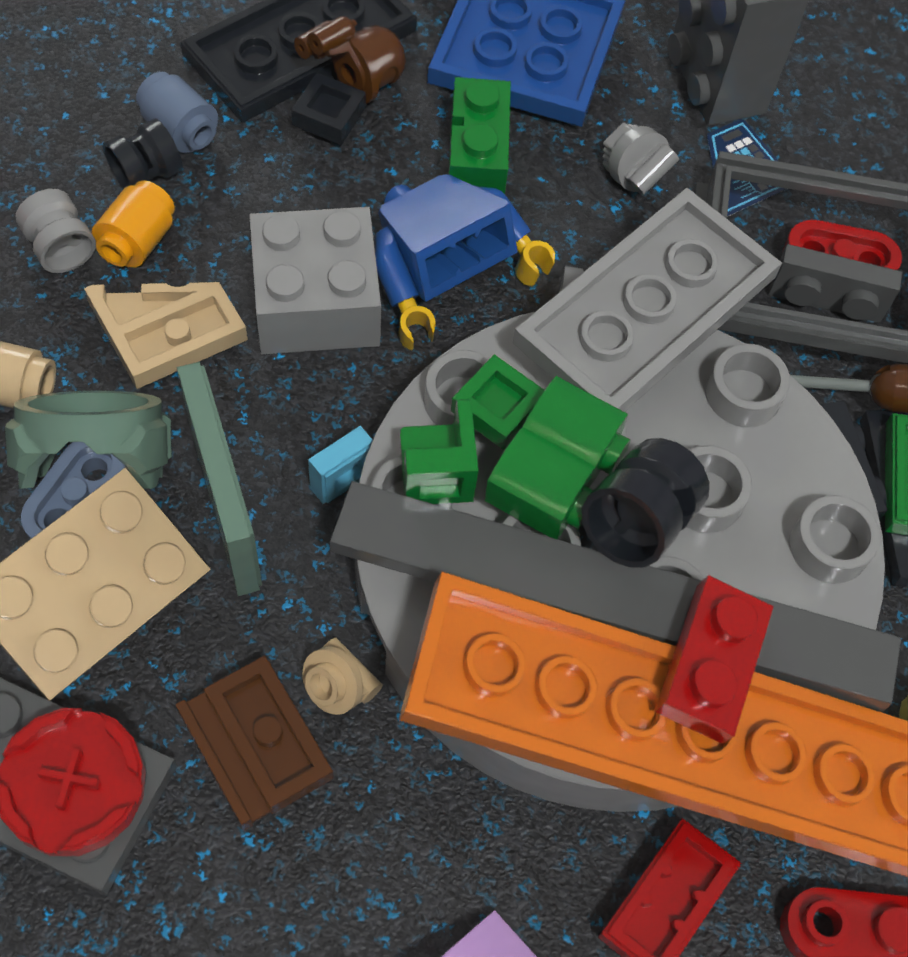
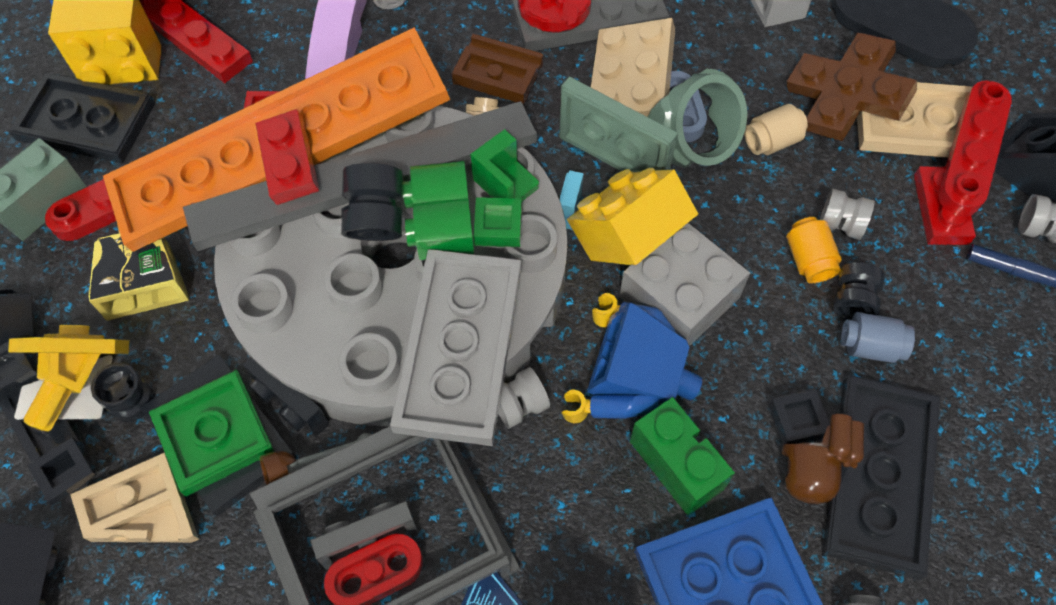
camera: 150 degrees right, 0 degrees up
(166, 326) = (737, 208): tan wing -> none
(309, 360) = (632, 216): none -> yellow brick
(637, 157) = (570, 541): light grey piece -> none

